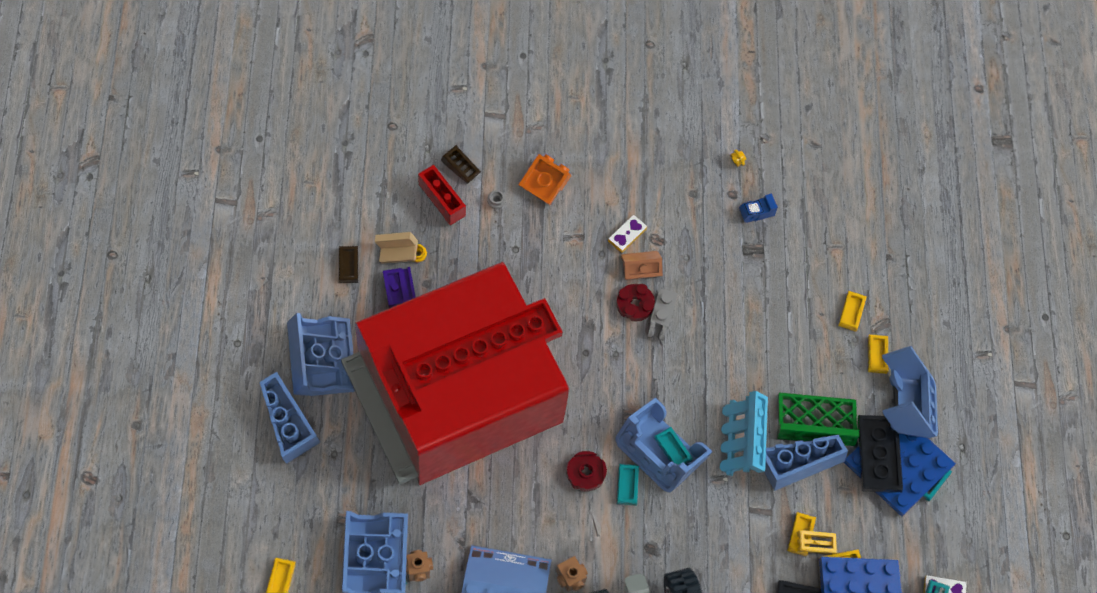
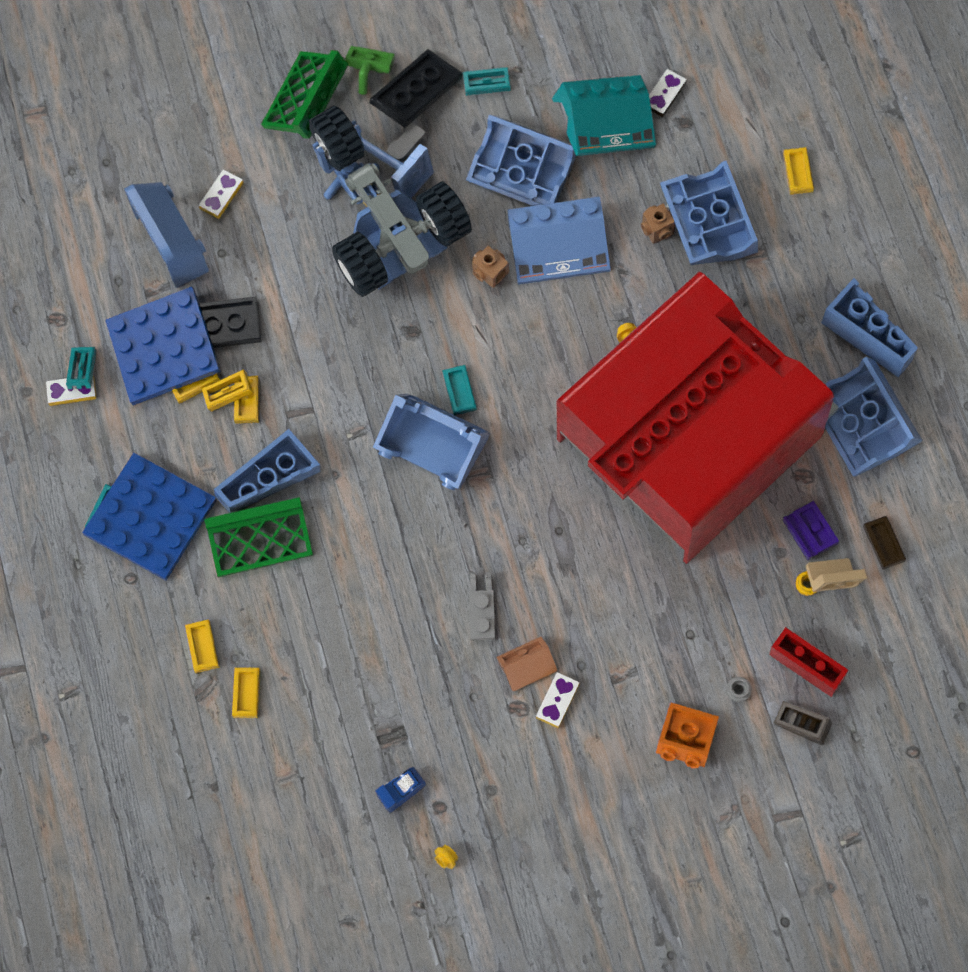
camera: 175 degrees right, 5 degrees up
(478, 482) = (624, 330): none -> yellow plate
(580, 480) = (508, 399): dark red plate -> none
(631, 311) = (517, 625): dark red plate -> none
(673, 447) = (419, 444): teal tile -> none
(755, 432) = (328, 479): medium azure fence -> none
(879, 455) = (175, 510): black tile -> none
(916, 395) = (142, 583): medium blue windscreen -> none

